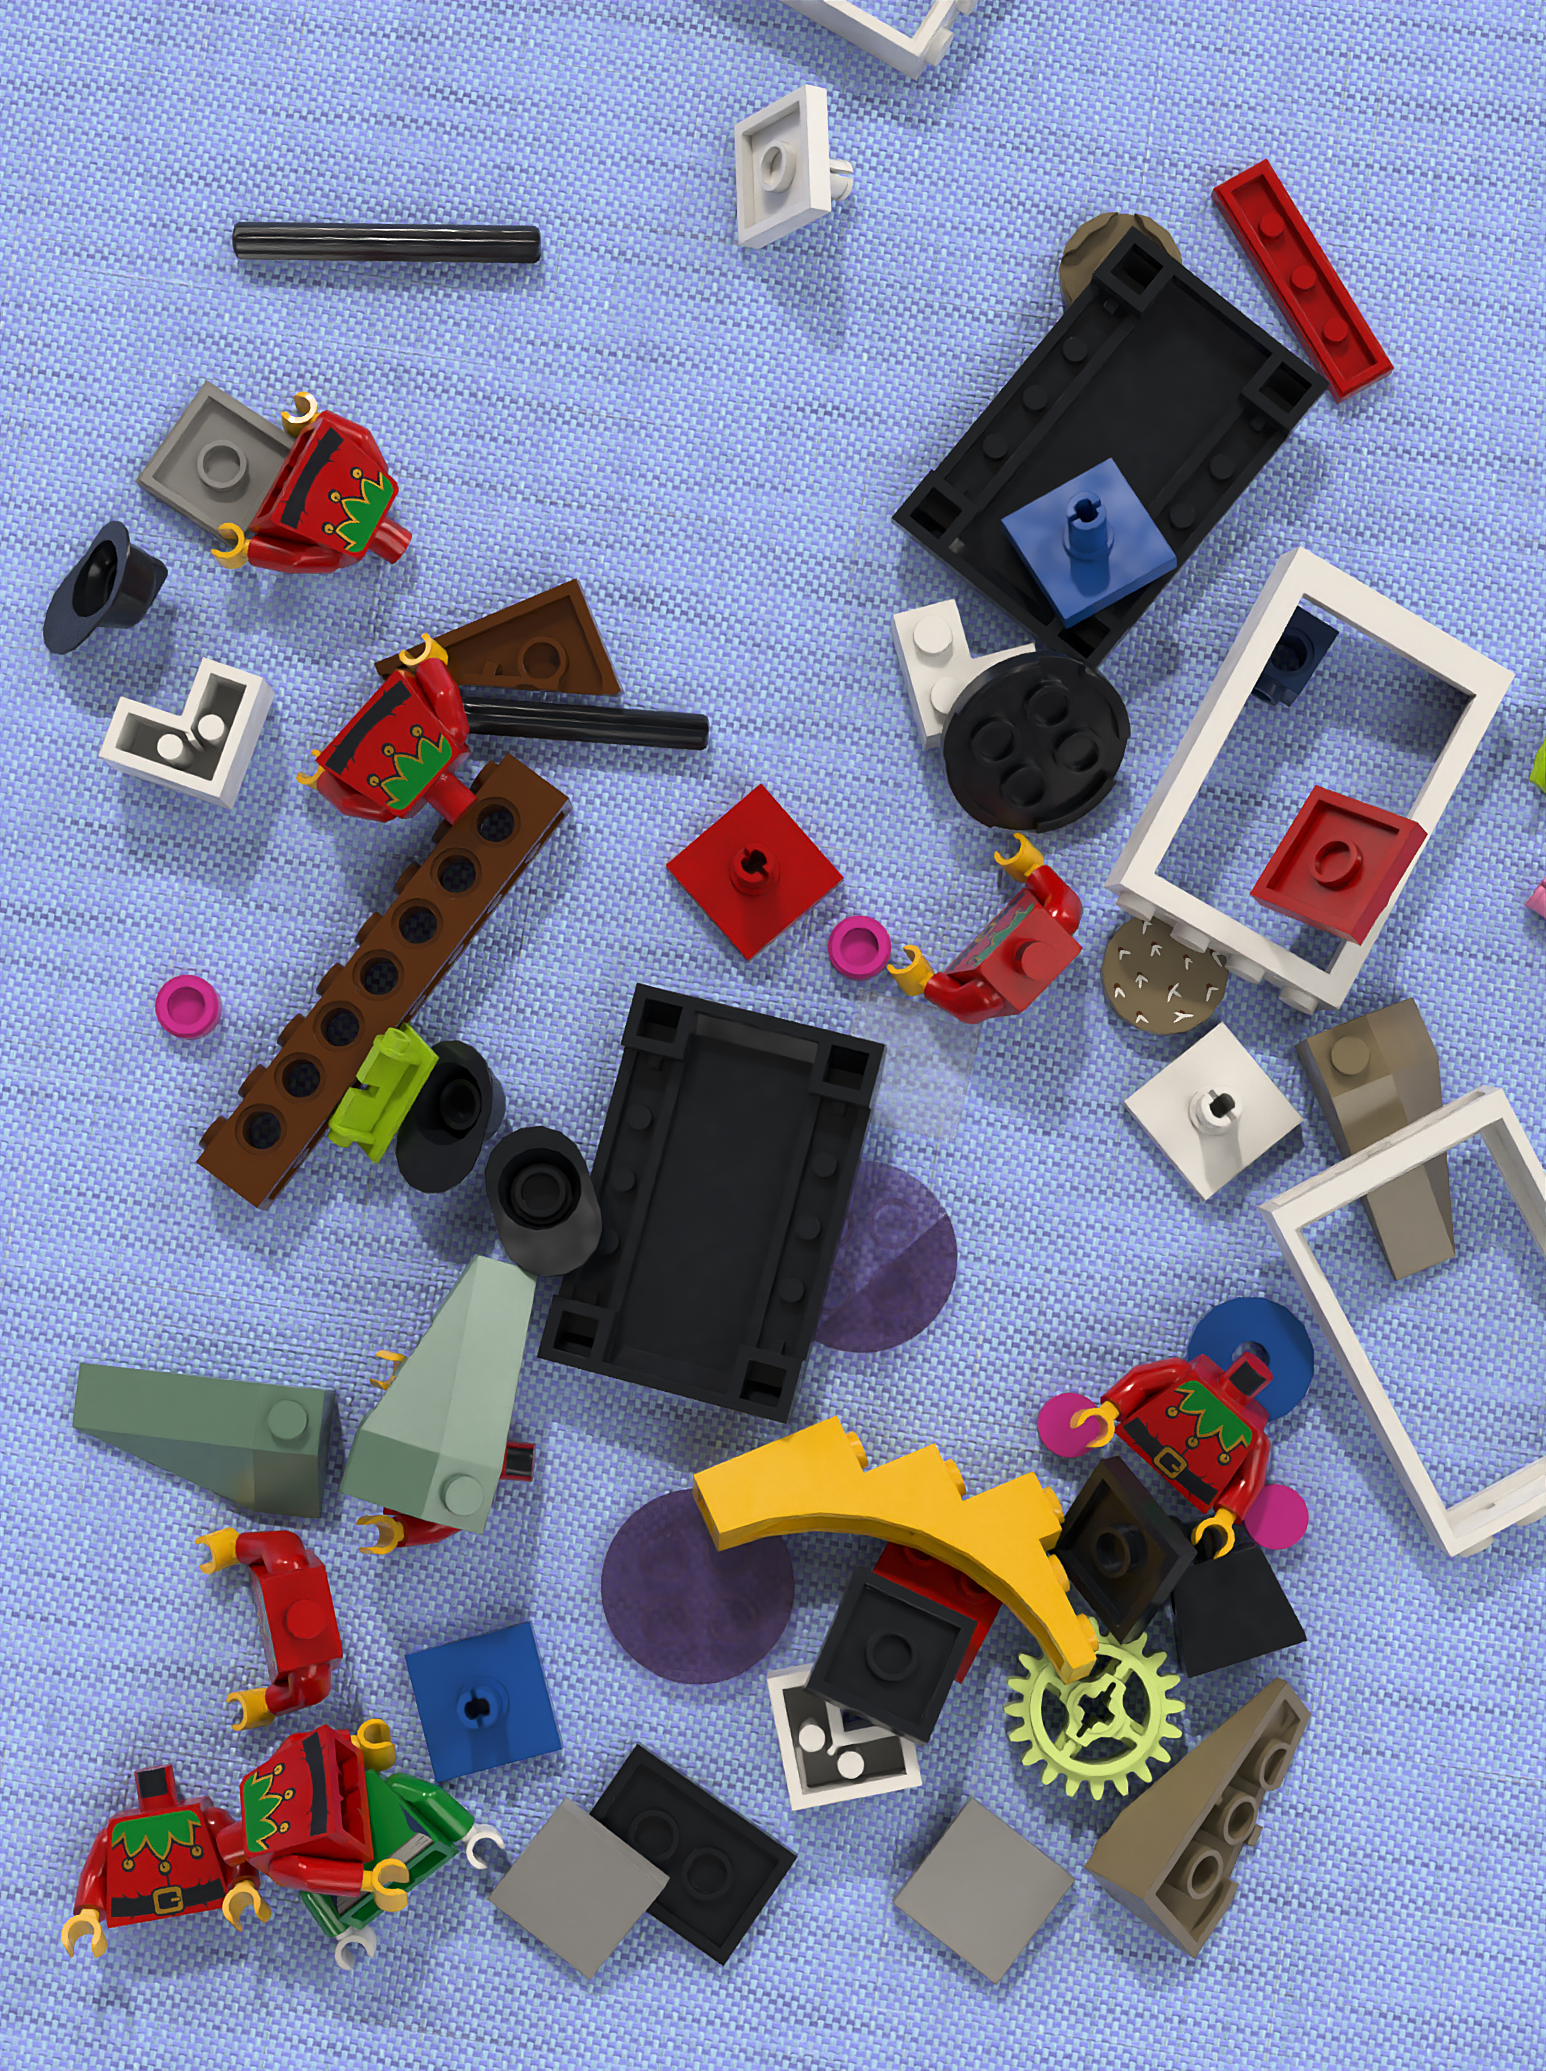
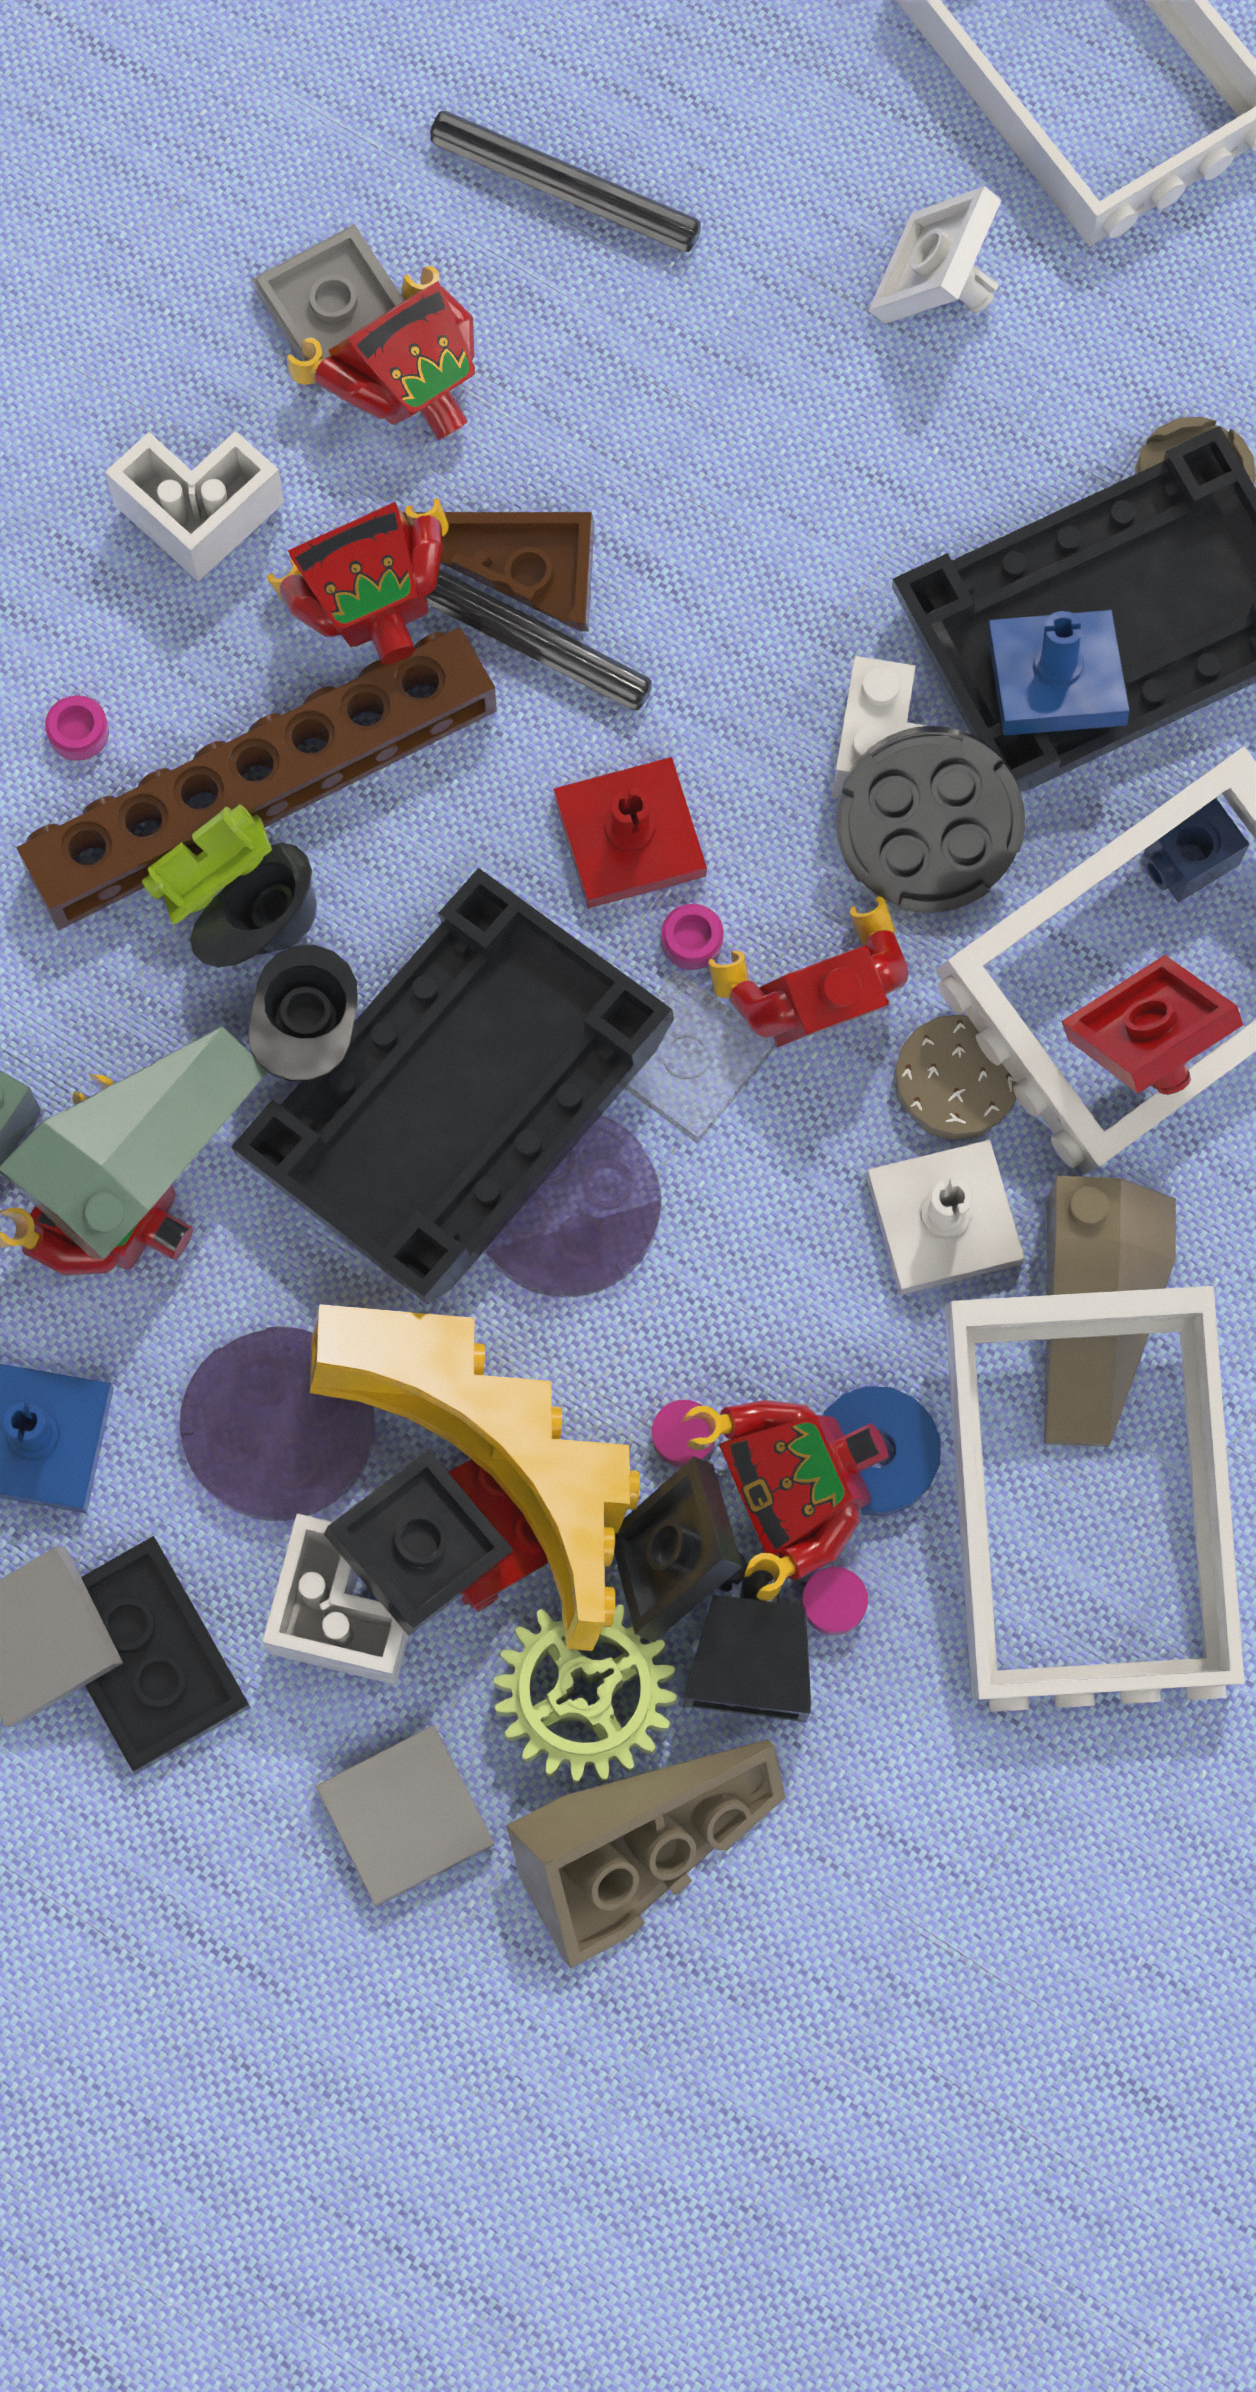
camera: 20 degrees right, 10 degrees down
(105, 589) = (185, 354): black piece -> none

